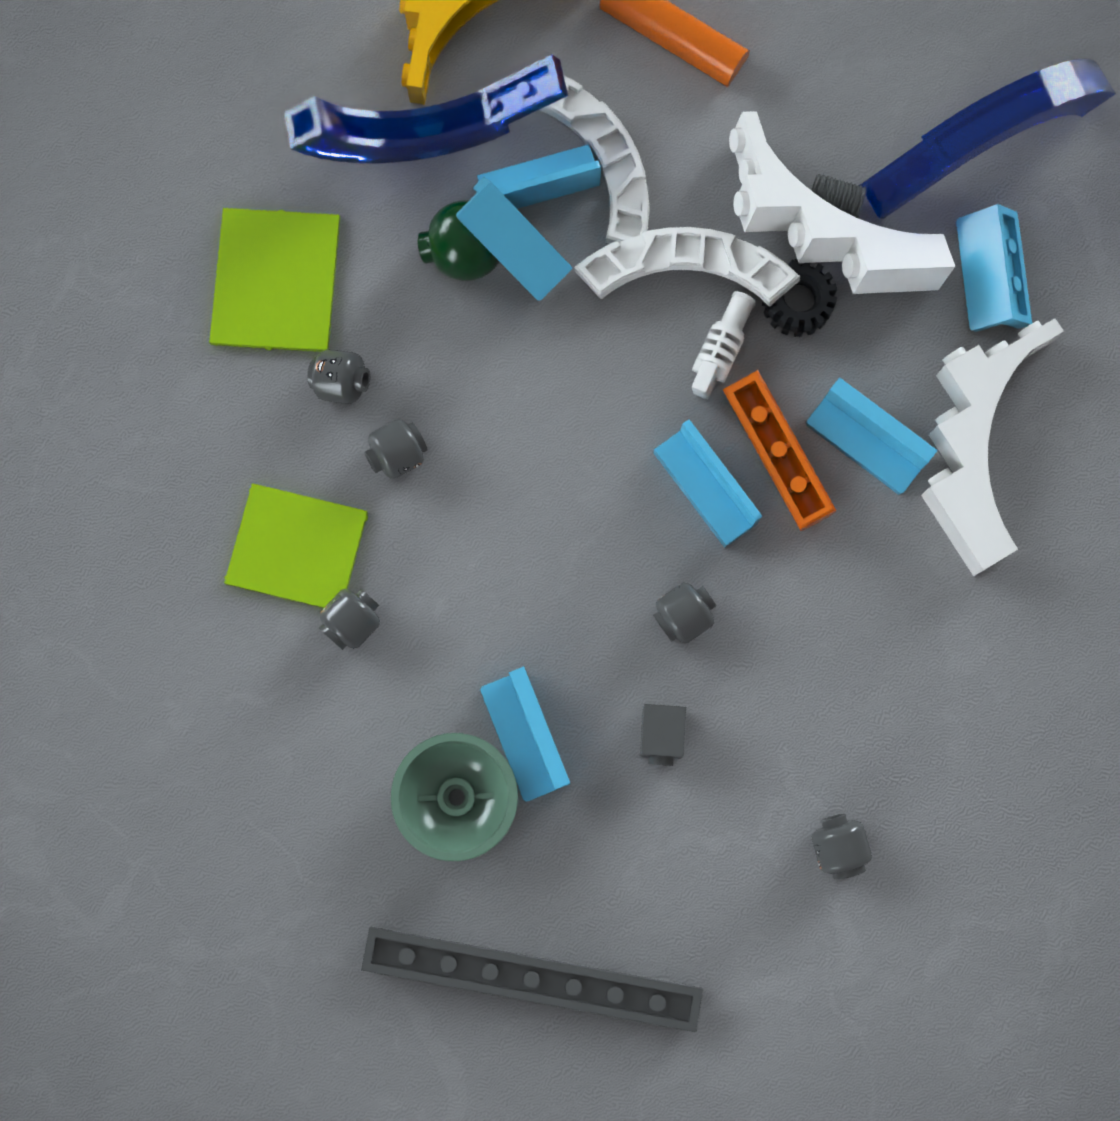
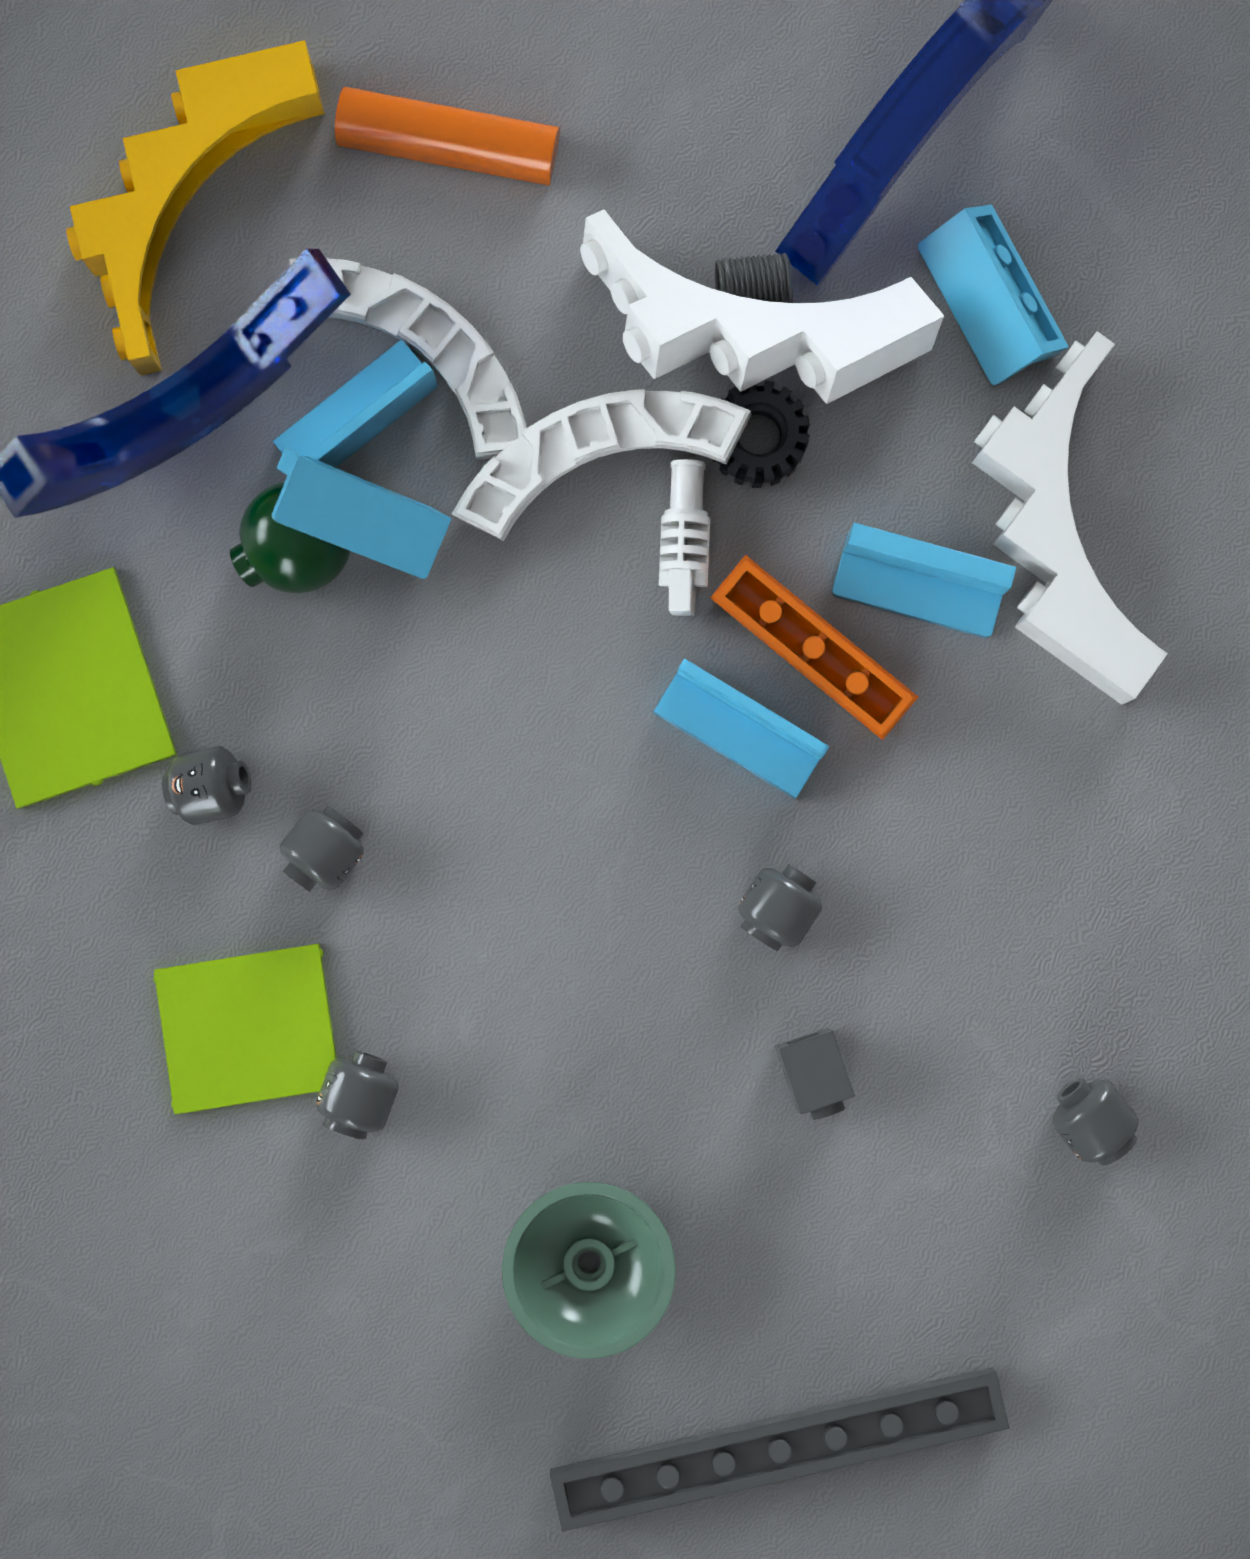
camera: 30 degrees left, 5 degrees up
(524, 735) = (642, 1147): medium azure panel -> none

